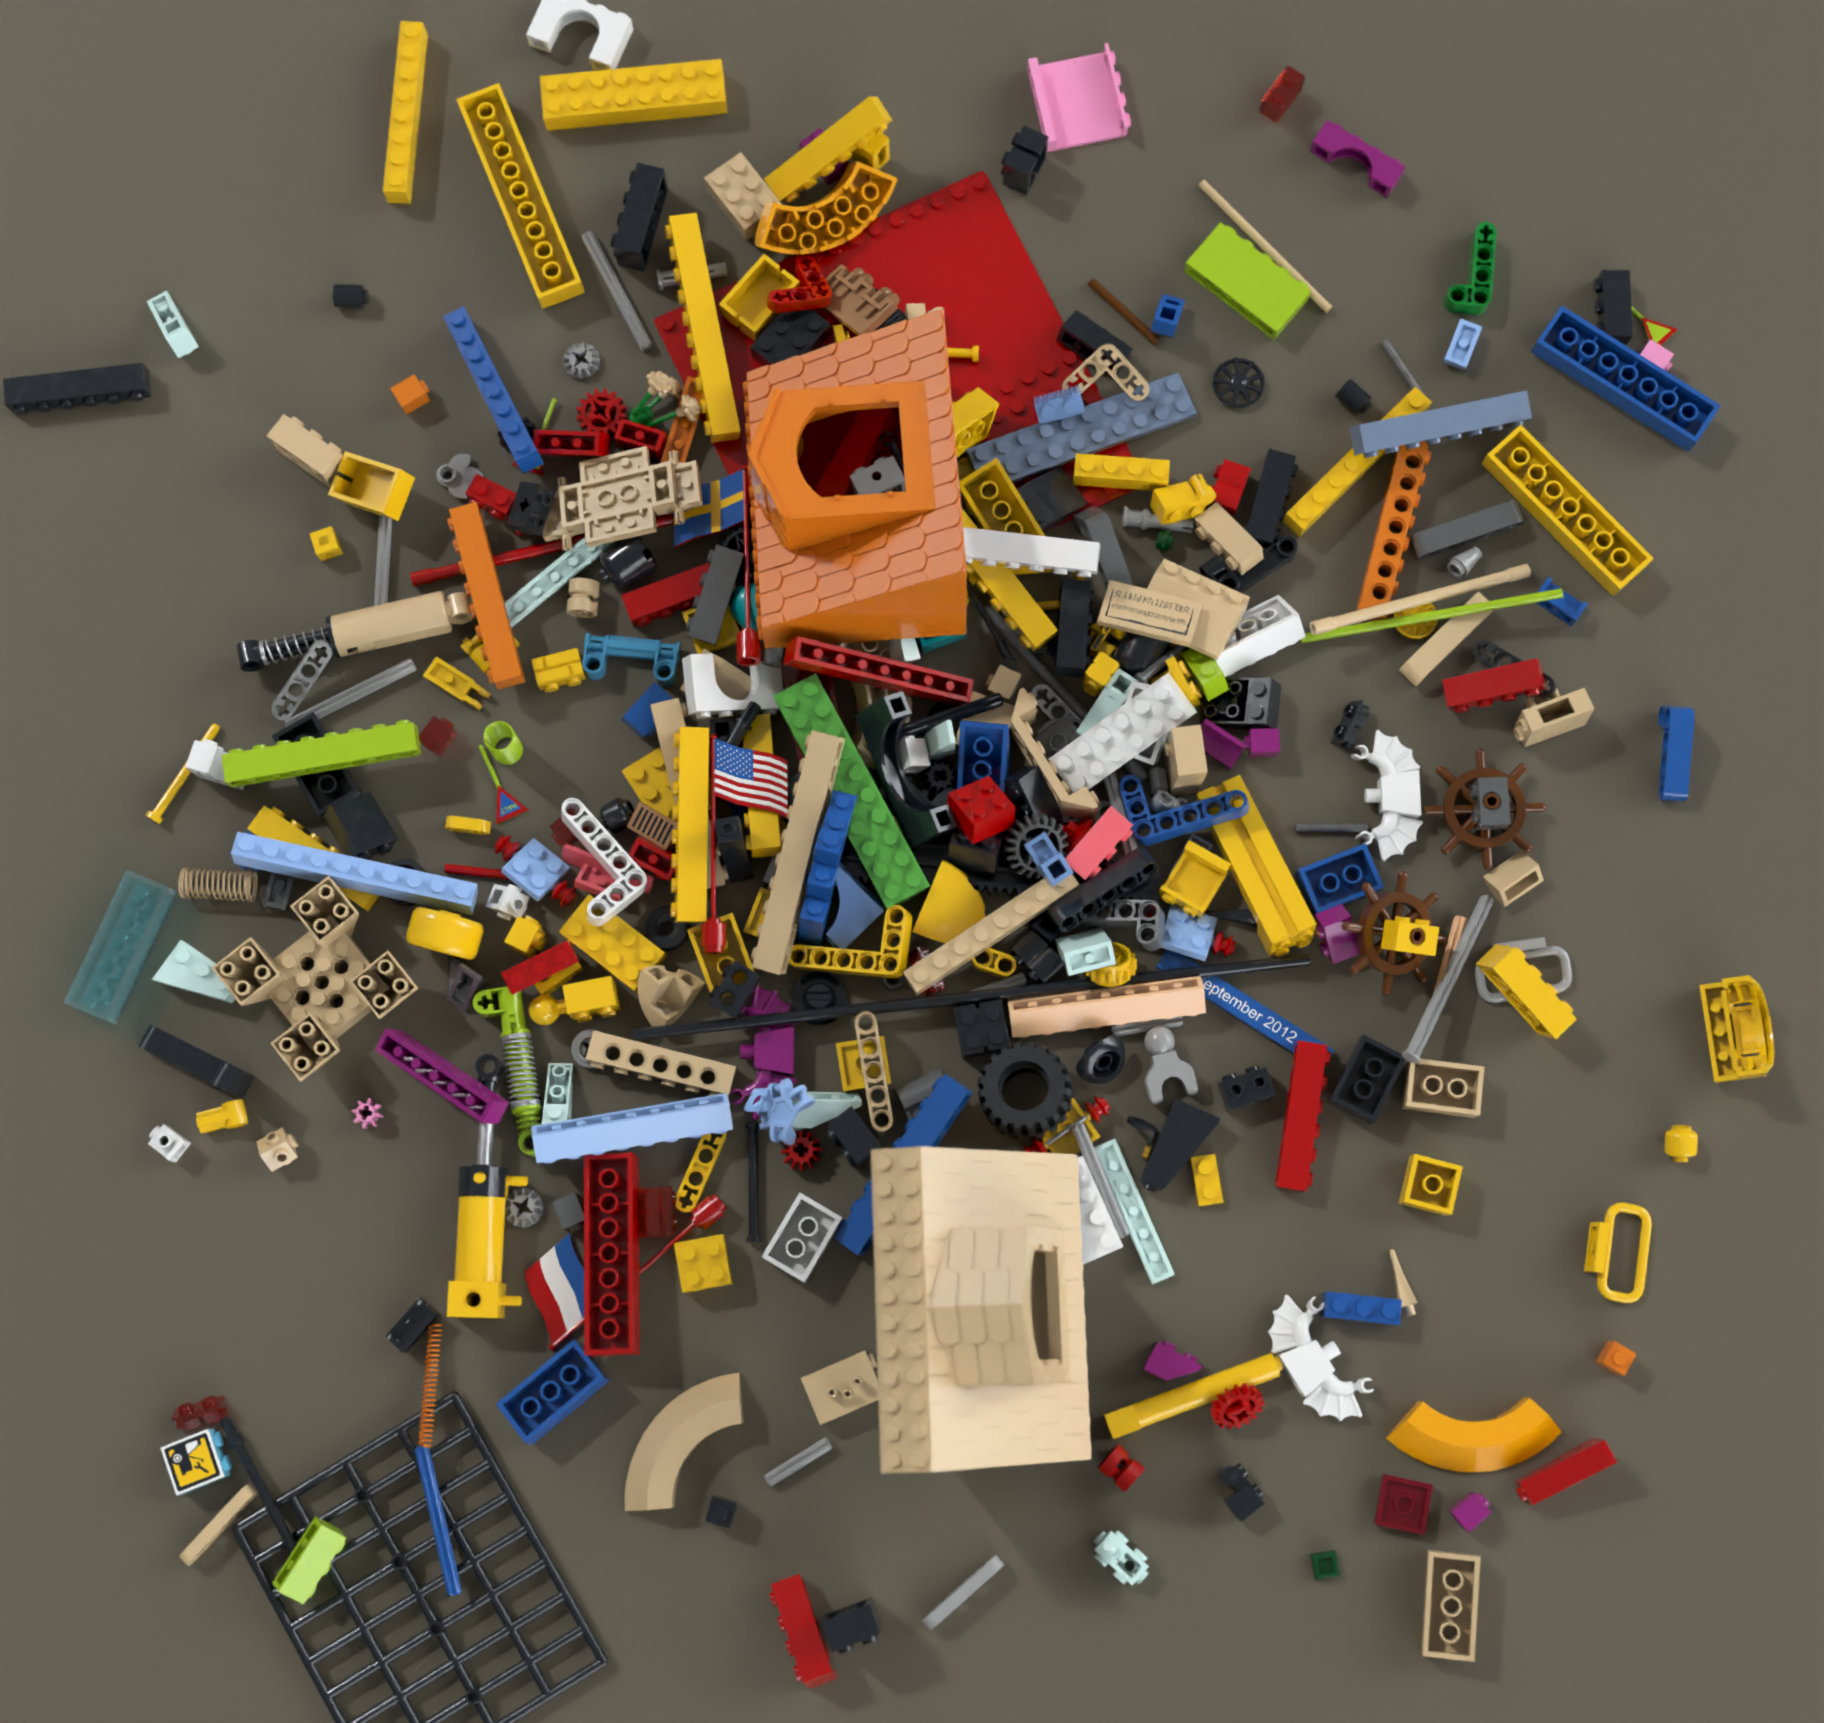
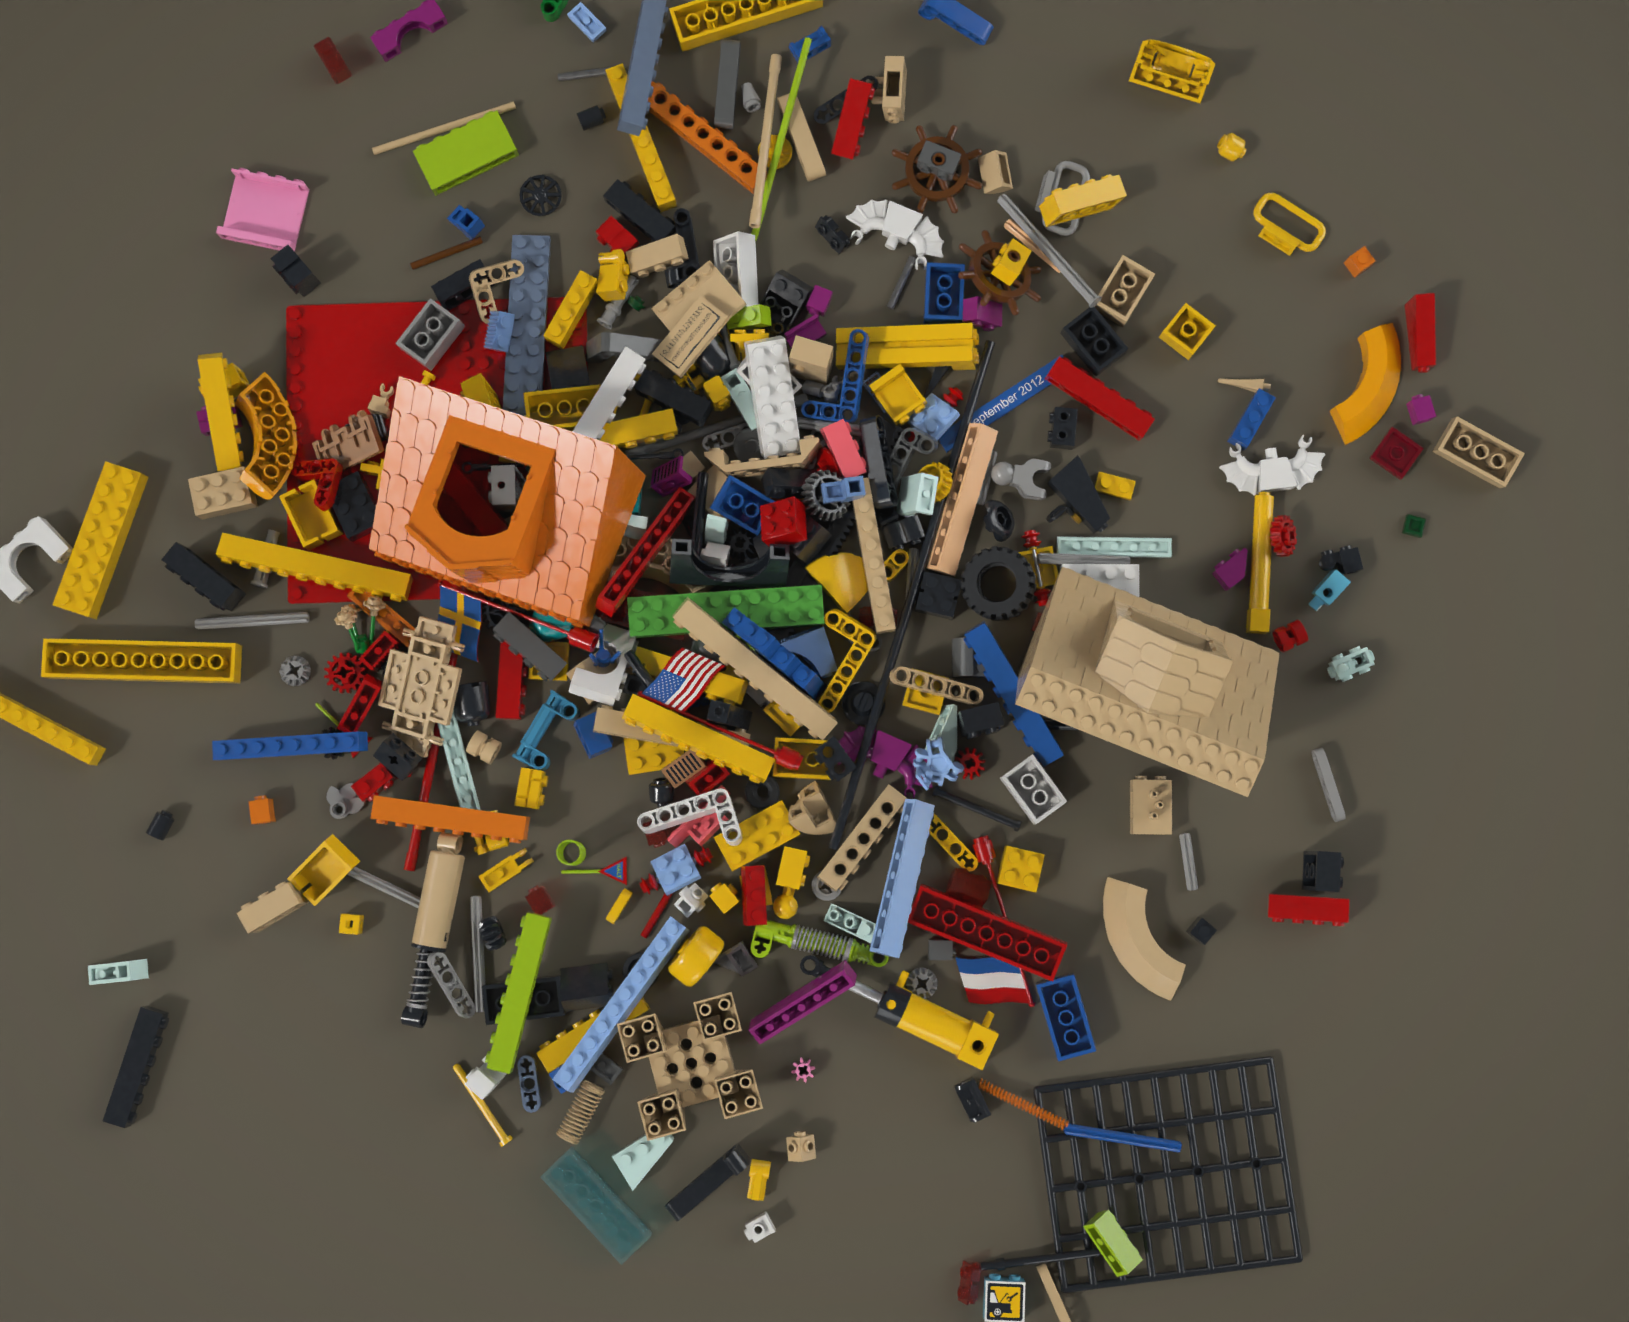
camera: 65 degrees left, 5 degrees up
(241, 801) = (536, 1097): none -> sand blue beam
(378, 698) = (492, 933): none -> black gear
(740, 680) = (603, 656): none -> blue plant
(980, 664) = (670, 477): none -> magenta panel
(1020, 333) = (430, 334): none -> light grey brick
(1208, 1493) = (1334, 583): none -> medium azure torso

